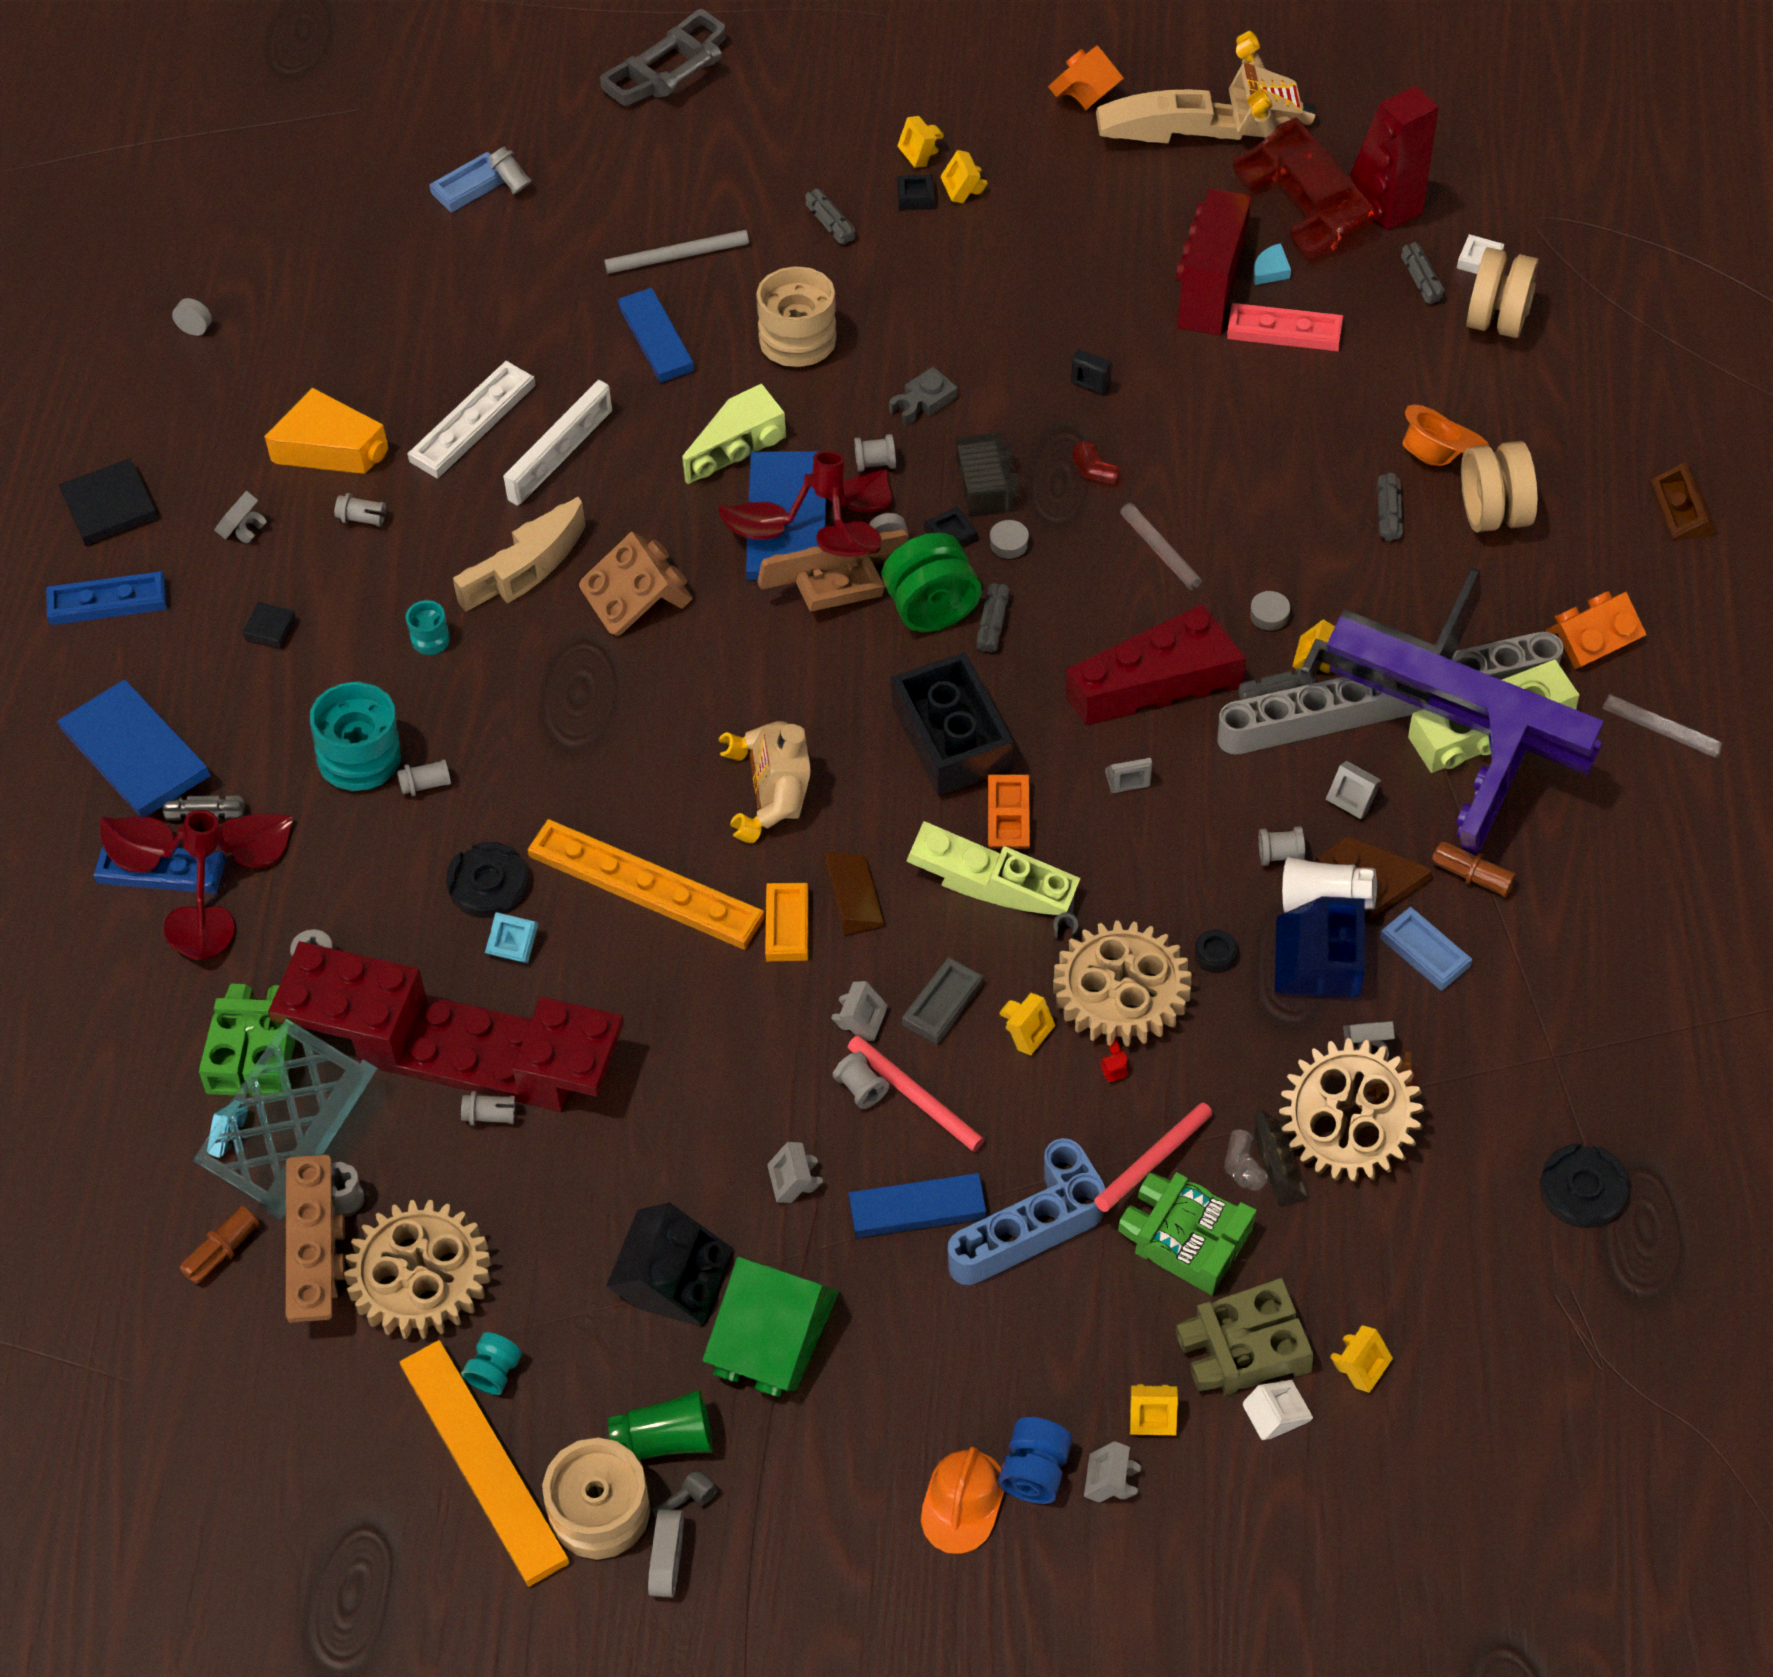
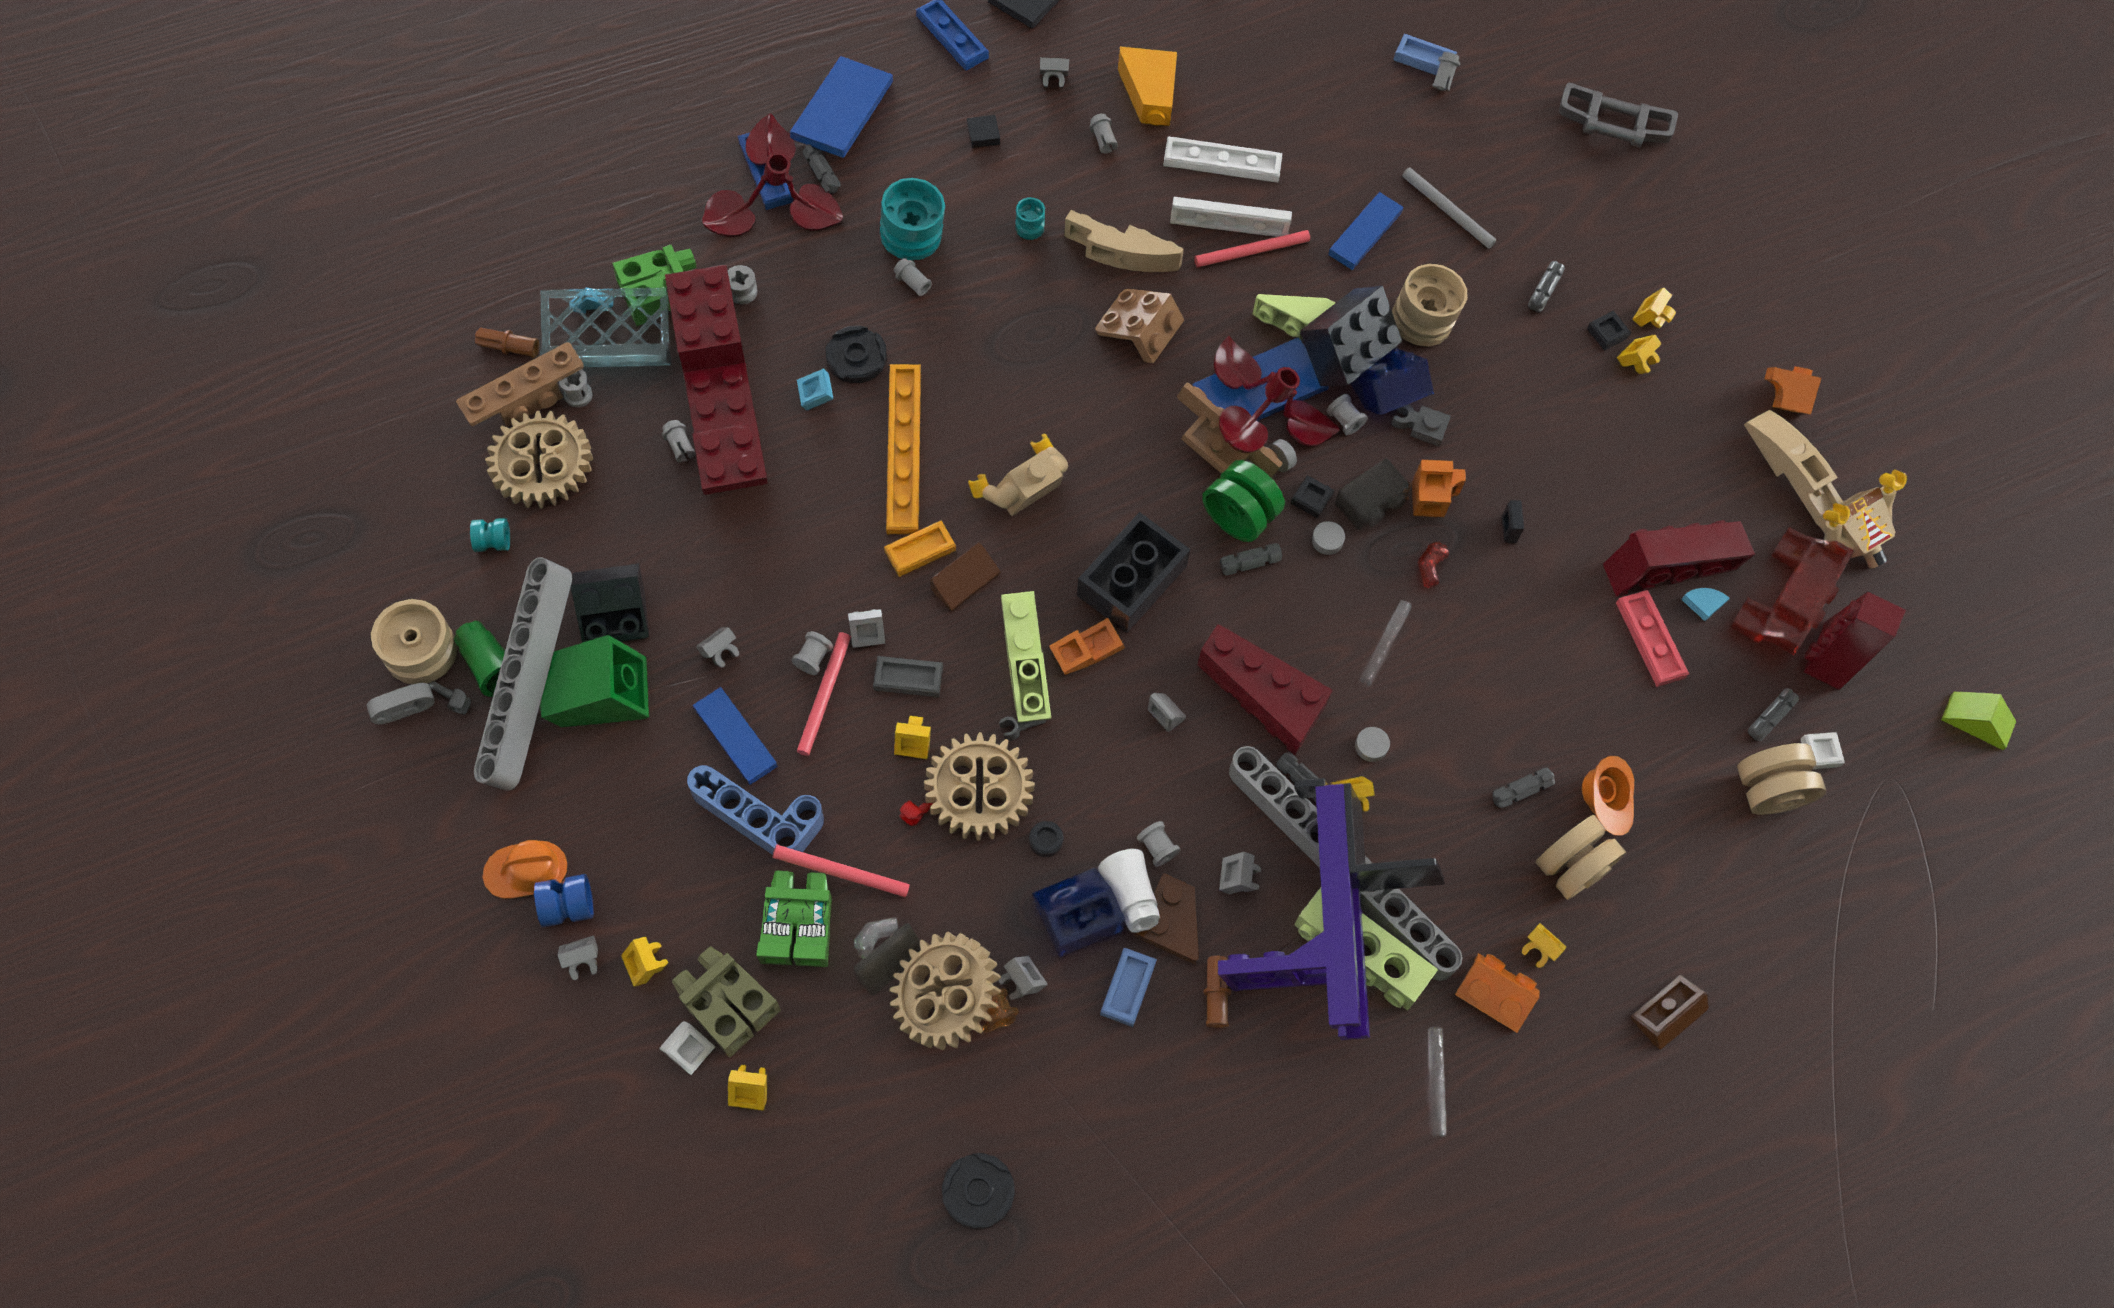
camera: 55 degrees right, 10 degrees up
(484, 1463) = (428, 558): light orange tile -> none
(607, 445) = (1252, 248): none -> coral bar
(743, 1386) = (523, 675): none -> light grey beam
(797, 393) = (1351, 336): none -> black brick
(858, 395) = (1394, 382): none -> clear blue slope
(1014, 416) = (1434, 486): none -> orange brick
(1511, 122) = (1981, 716): none -> lime slope
(1568, 565) = (1545, 942): none -> yellow tile

